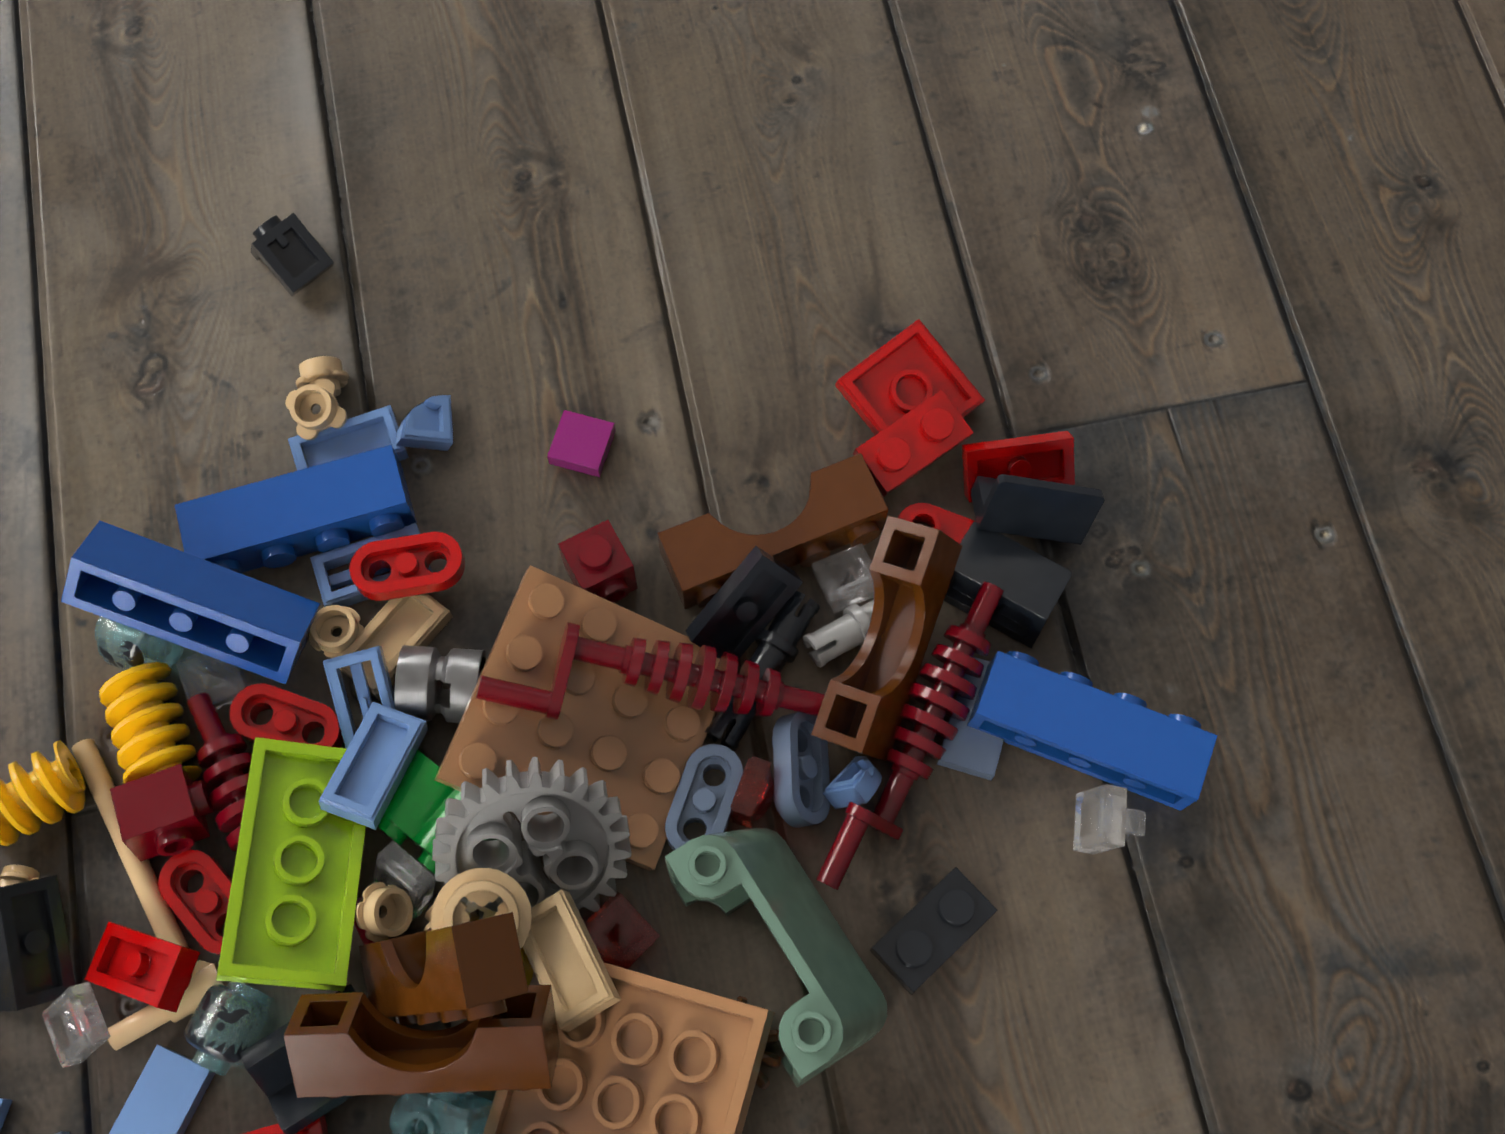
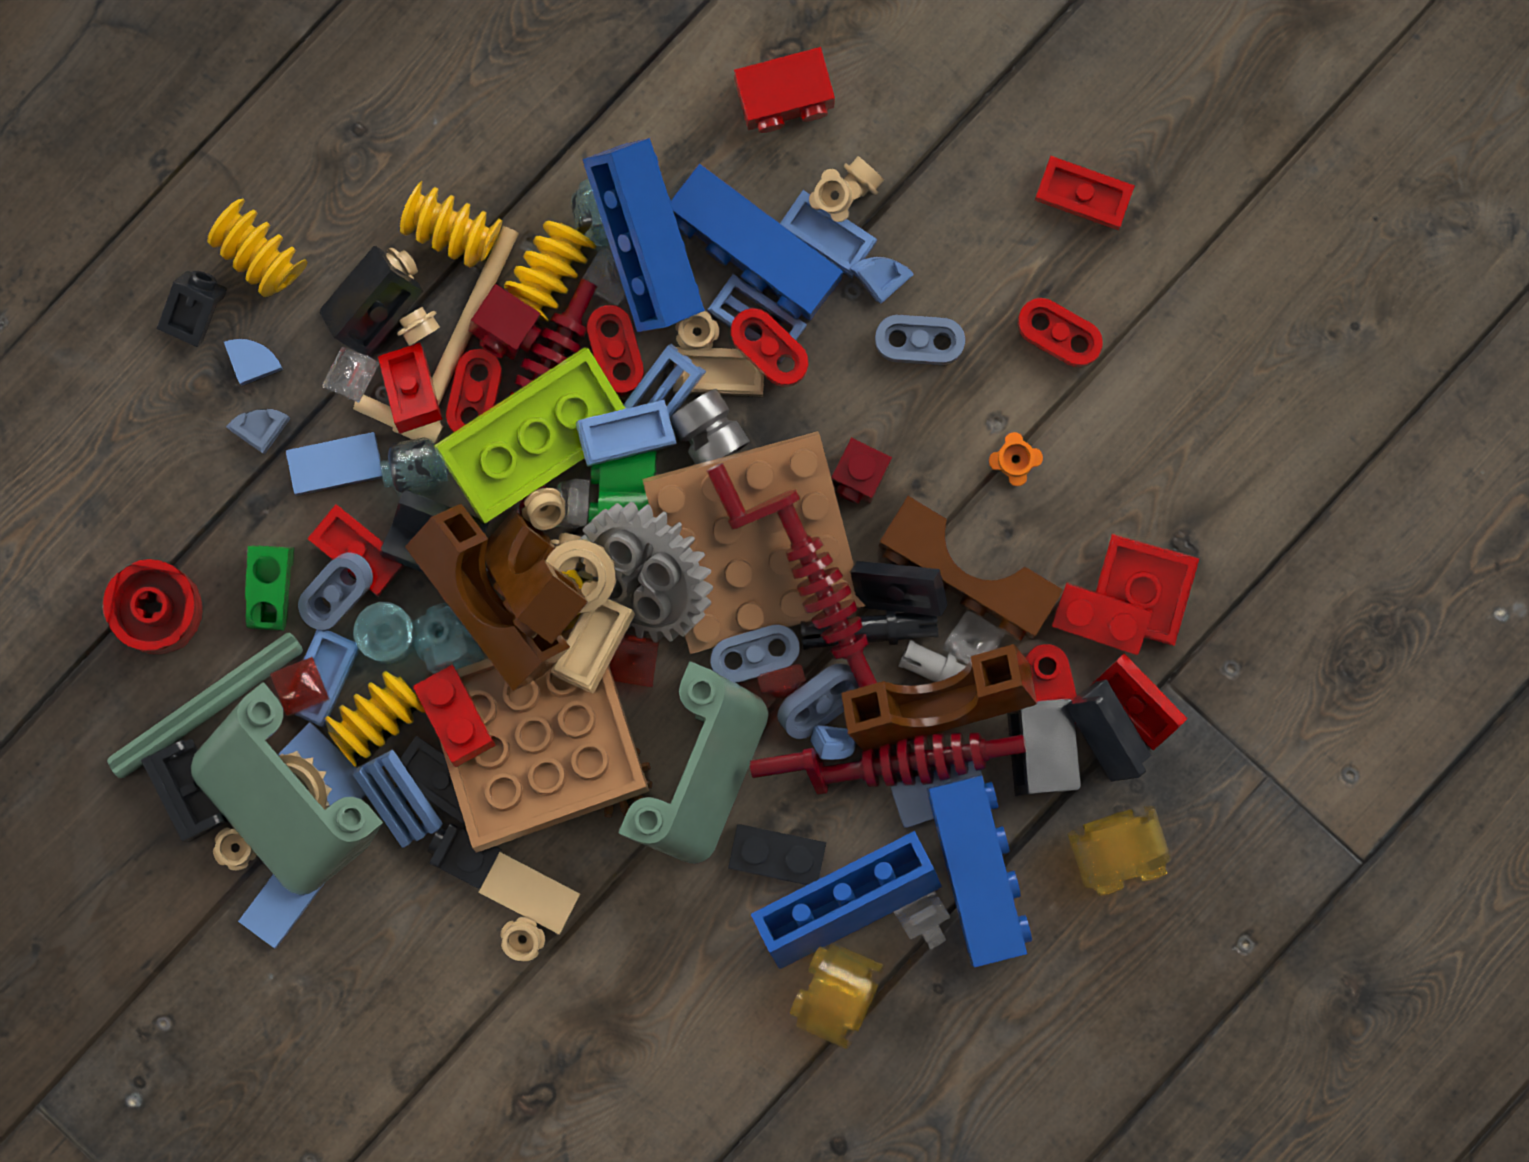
camera: 55 degrees right, 15 degrees up
(89, 910) = (417, 325): none -> tan plate
(178, 385) = (784, 90): none -> red brick
(290, 252) = (938, 77): black bracket -> none
(499, 203) = (1084, 193): none -> red plate
(511, 430) = (919, 337): none -> sand blue plate
(581, 443) = (944, 390): magenta tile -> none
(607, 304) = (1061, 330): none -> red plate
(693, 410) = (1016, 472): none -> orange plate
(1036, 886) = (846, 900): none -> blue brick
(1139, 967) = (837, 994): none -> clear yellow brick
(1164, 573) = (1120, 849): none -> clear yellow brick

